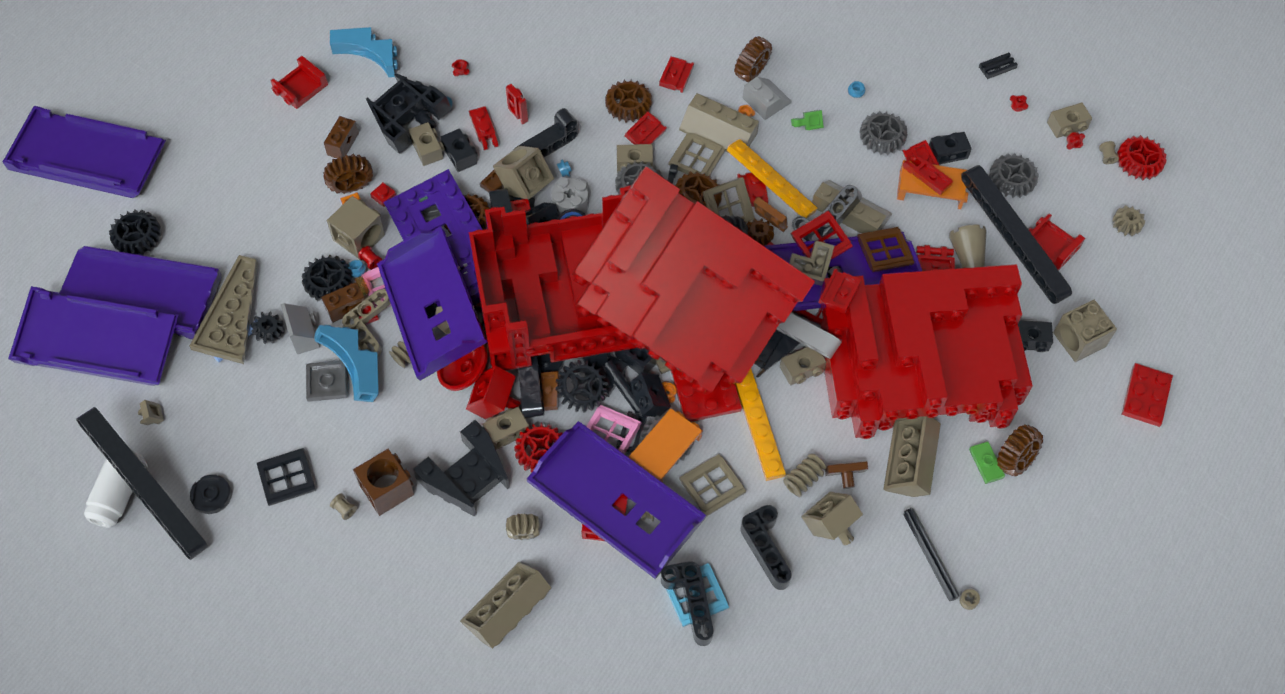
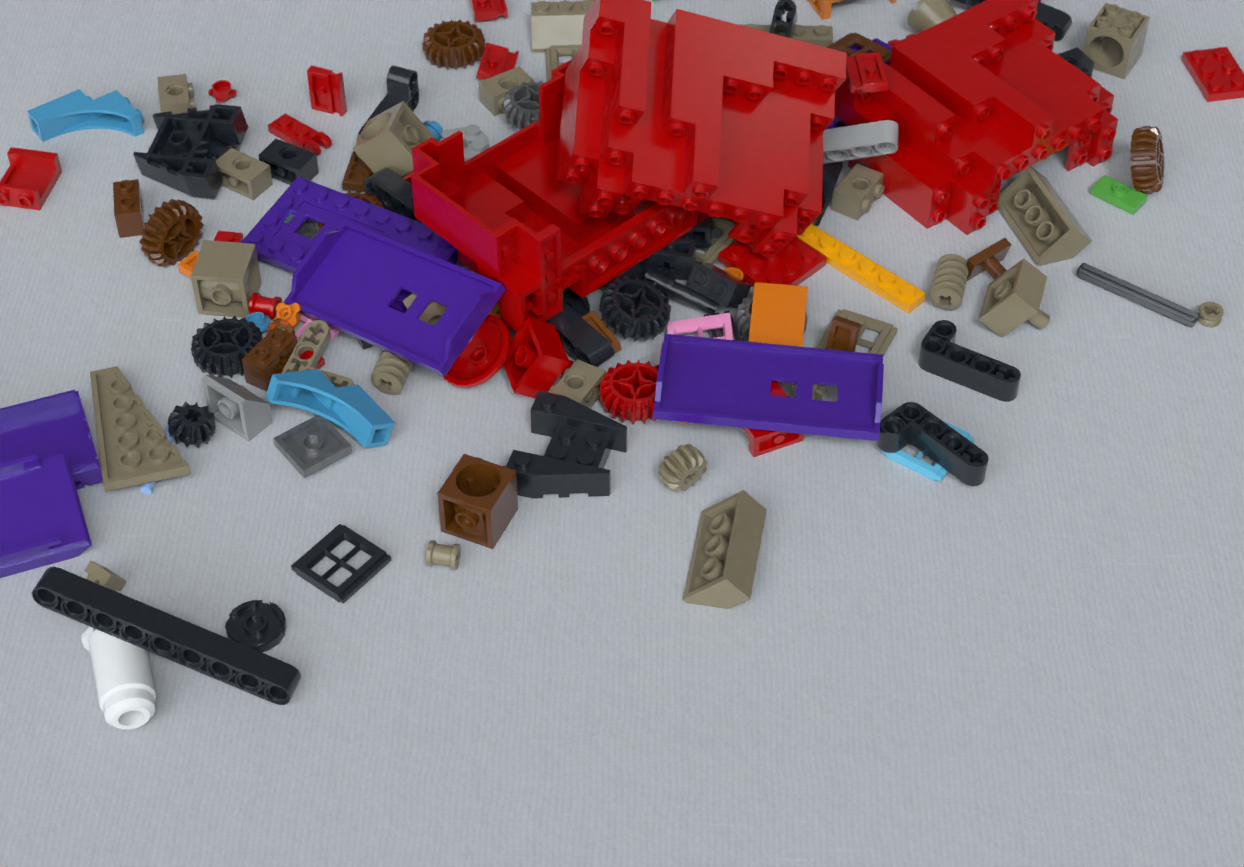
camera: 30 degrees left, 15 degrees down
(372, 275) = (293, 313): none -> orange plate
(426, 61) = (175, 94): none -> dark tan brick
(692, 486) = (843, 334): none -> reddish brown tile

